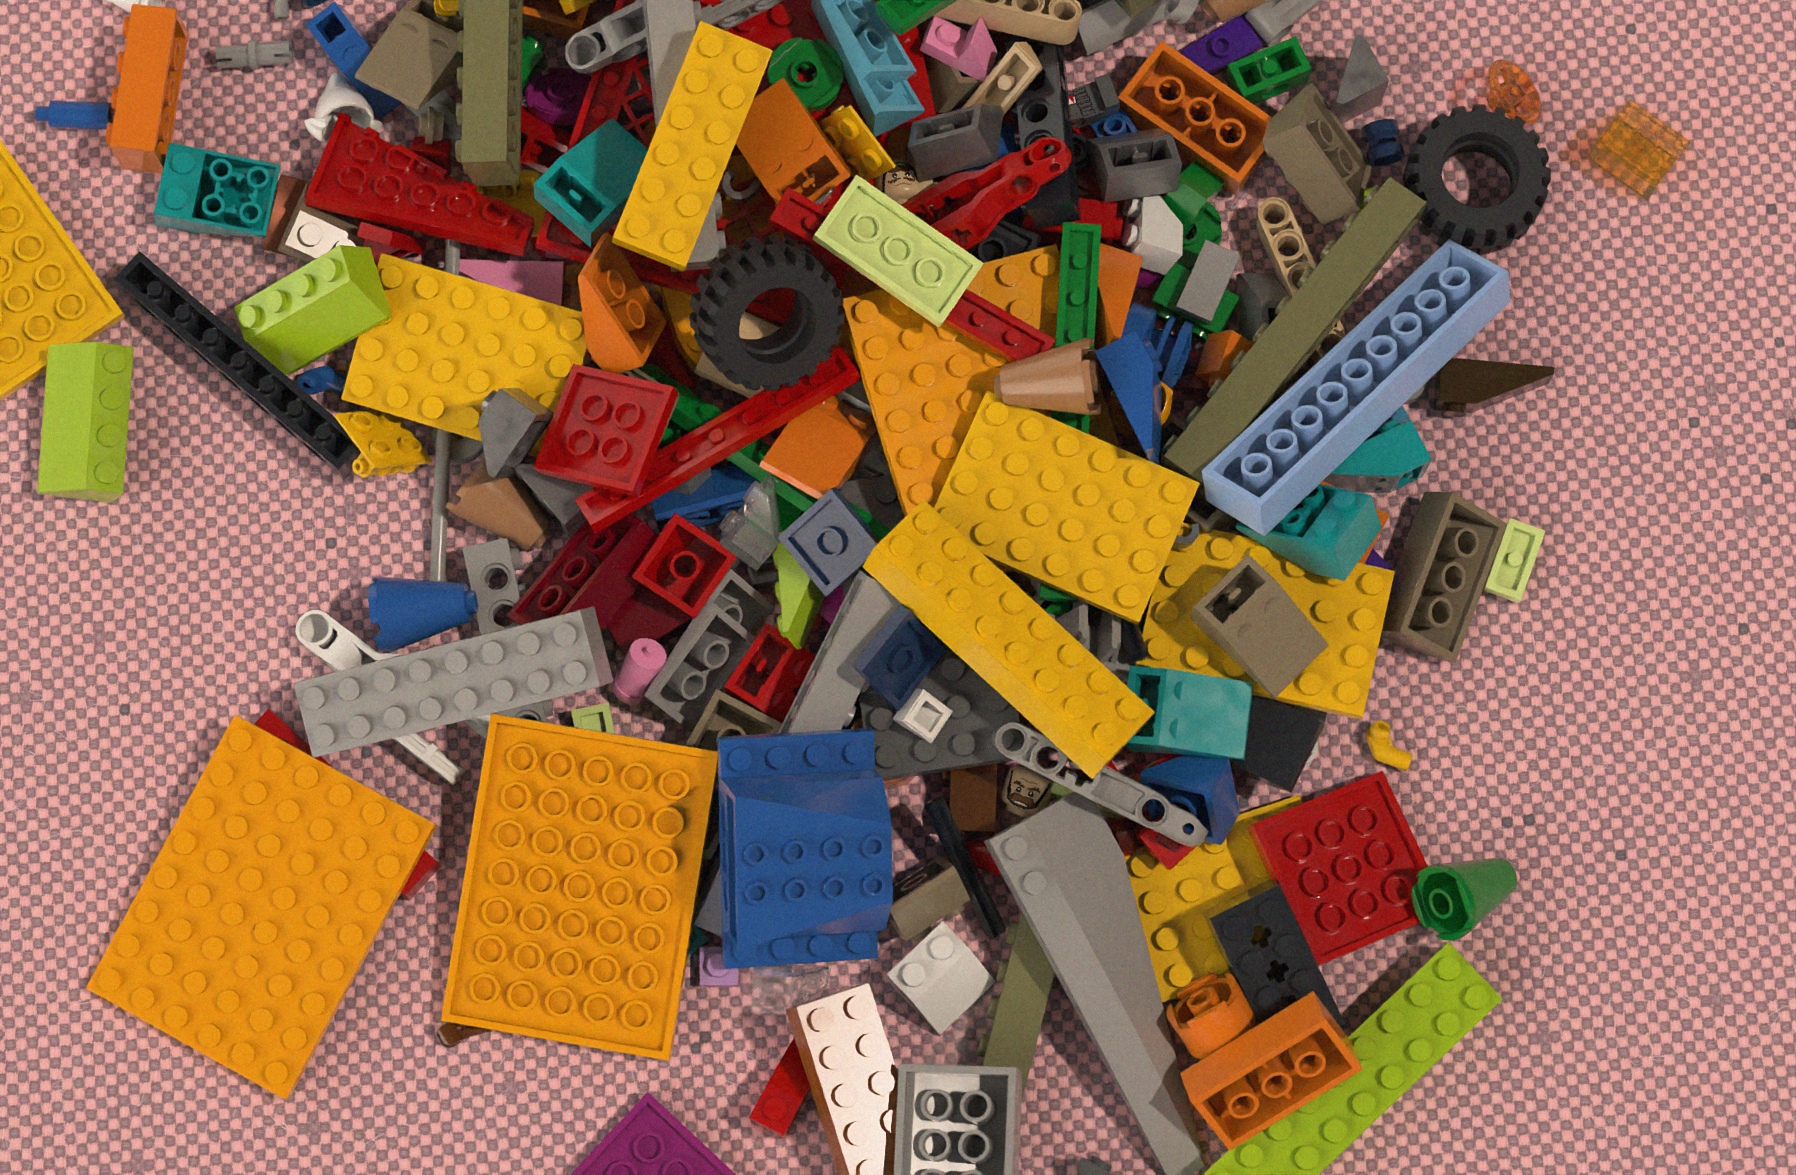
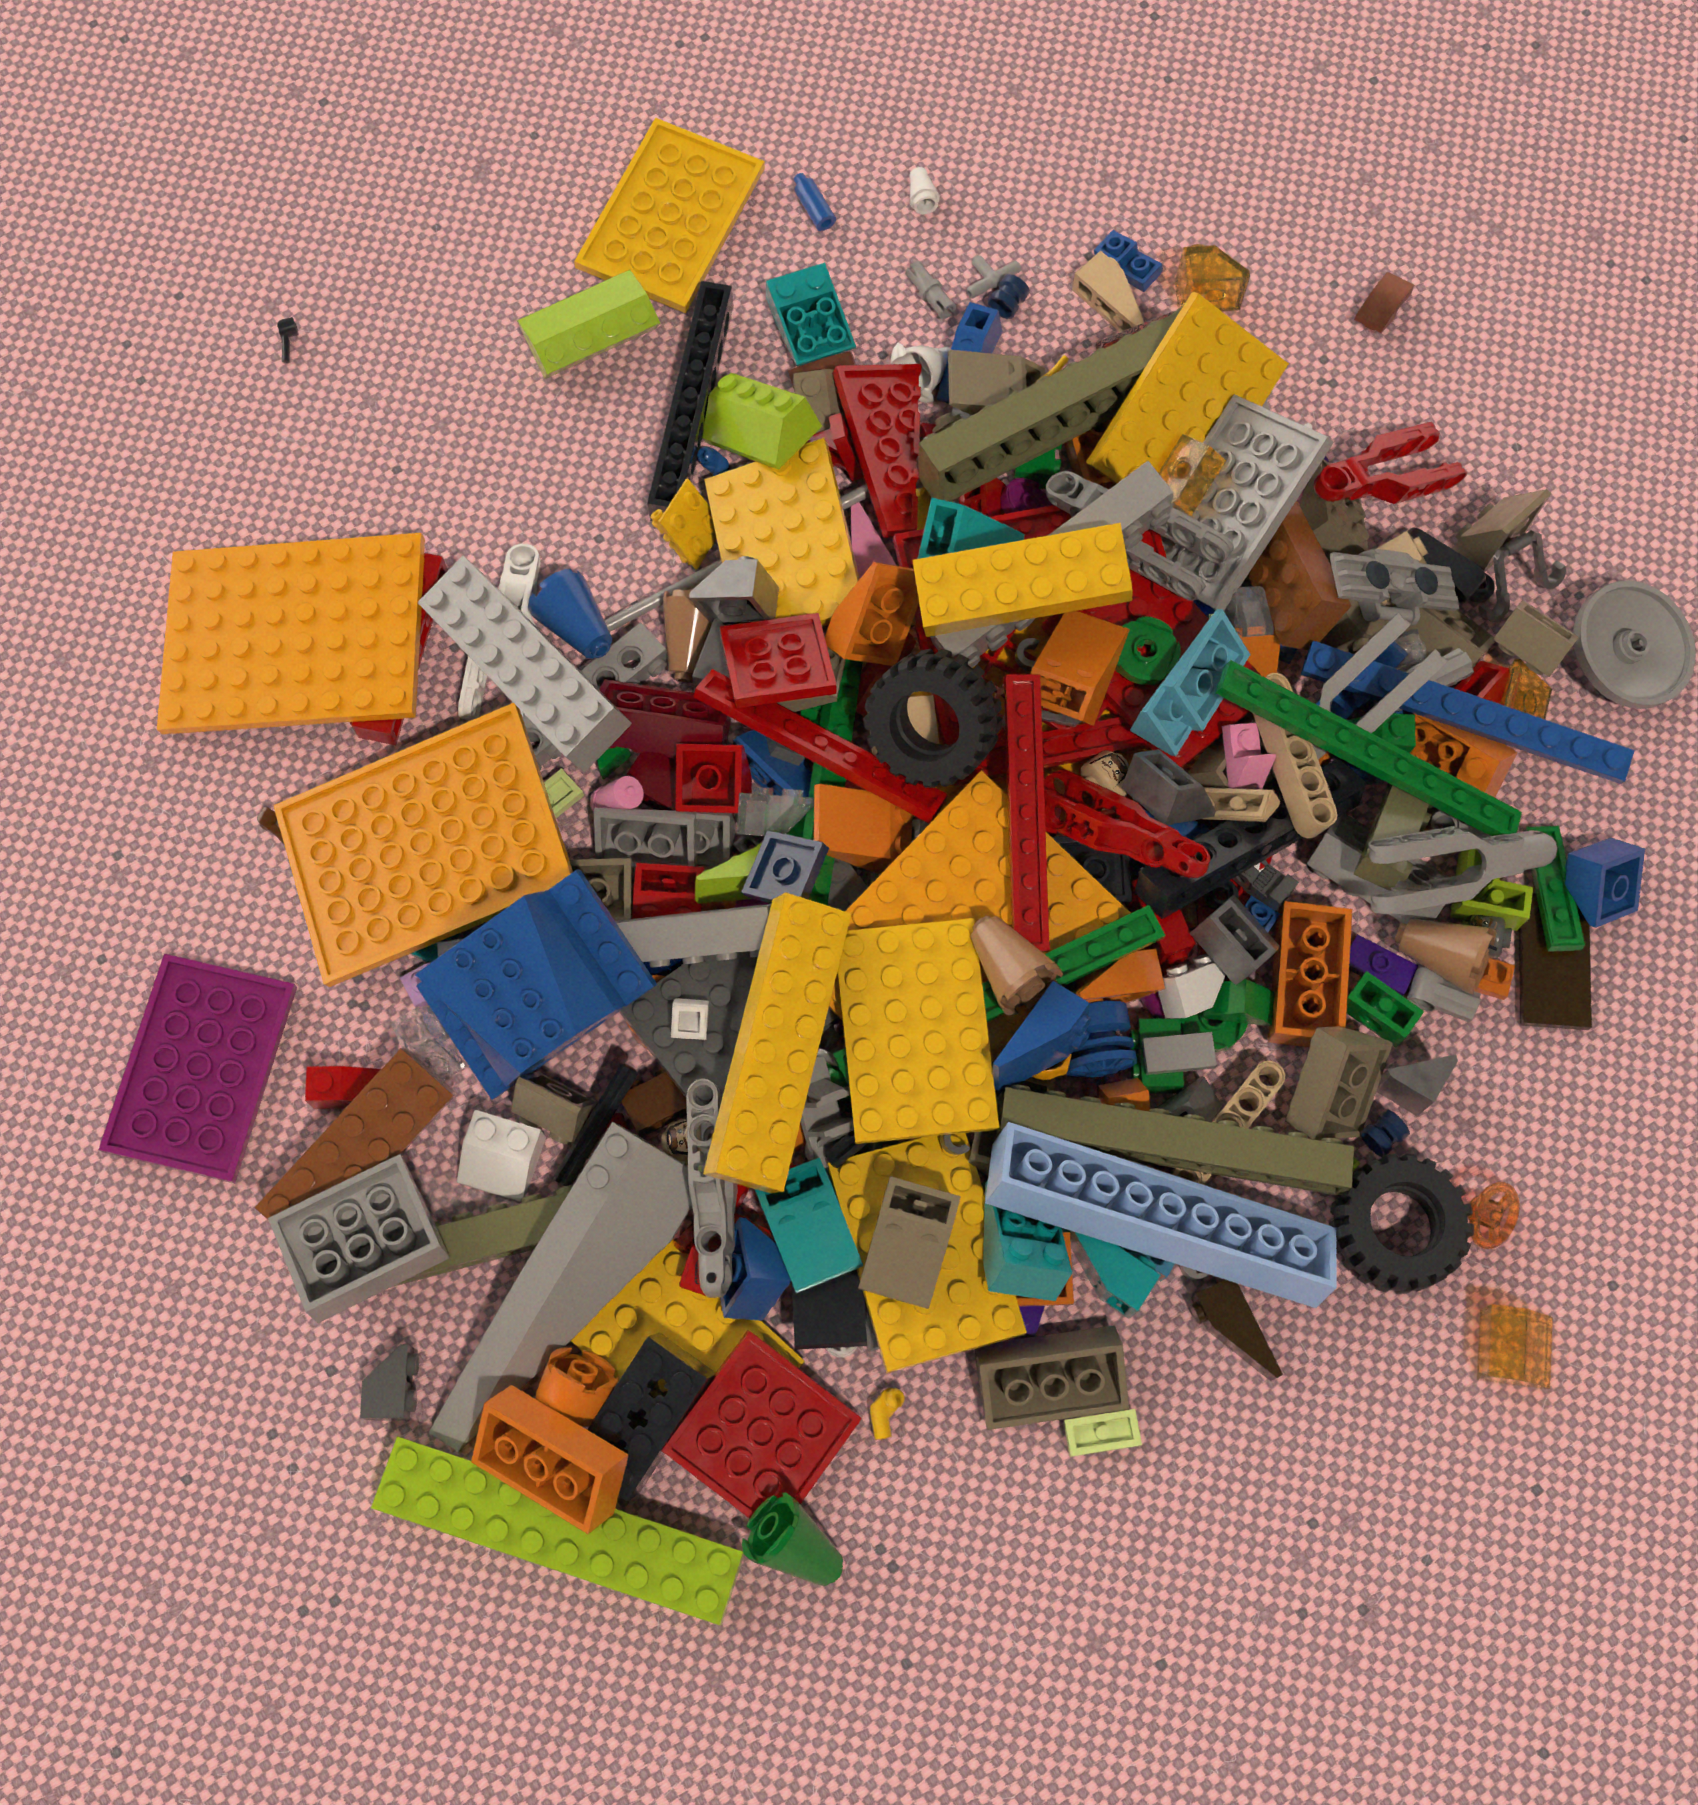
camera: 60 degrees right, 5 degrees down
(147, 87) = (860, 229): orange brick -> none
(856, 143) = (1117, 700): yellow hinge -> none
(897, 251) = (1040, 784): yellowish green plate -> none
(899, 657) = (719, 970): dark blue plate -> none

